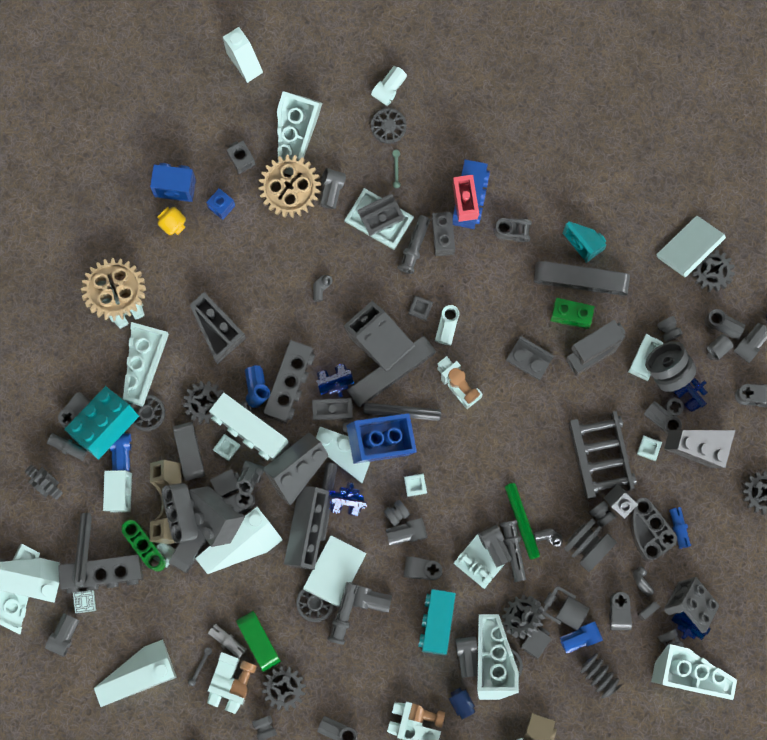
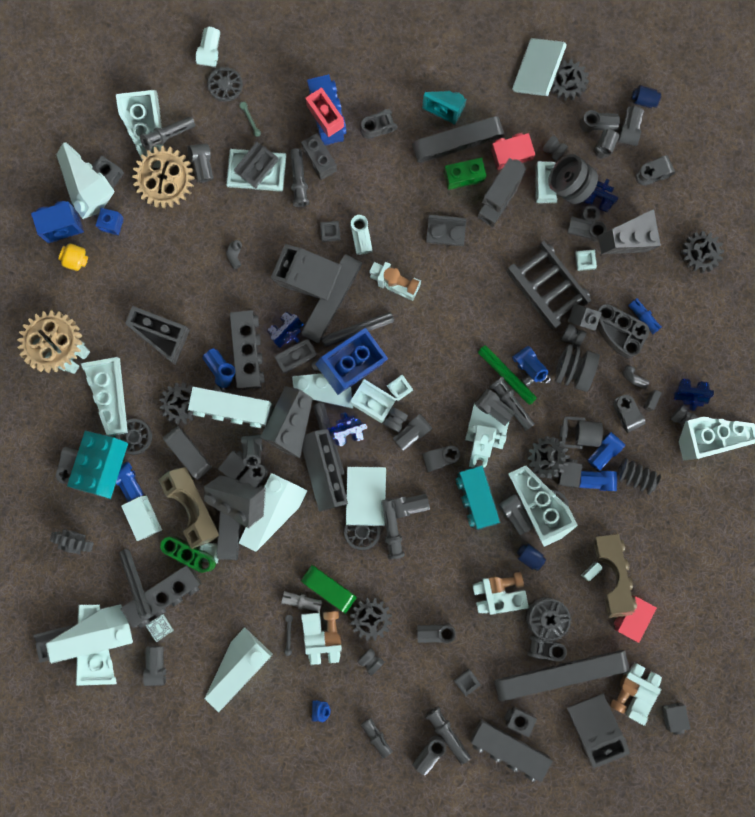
camera: 25 degrees left, 5 degrees up
(67, 446) = (77, 500): dark grey pin -> none
(179, 512) = (205, 511): dark grey beam -> none
(214, 164) = (85, 187): none -> light aqua wedge
(226, 447) = (219, 433): light aqua tile -> none
(242, 54) = (63, 78): light aqua slope -> none
(305, 147) = (160, 135): none -> dark grey pin
(383, 485) = (372, 401): none -> light aqua plate
(466, 575) = (482, 445): none -> light aqua hinge
(549, 521) = (529, 362): none -> blue piece
(562, 662) = (599, 480): none -> blue piece
(628, 313) = (517, 147): none -> coral brick
(694, 601) = (687, 372): dark grey bracket -> none

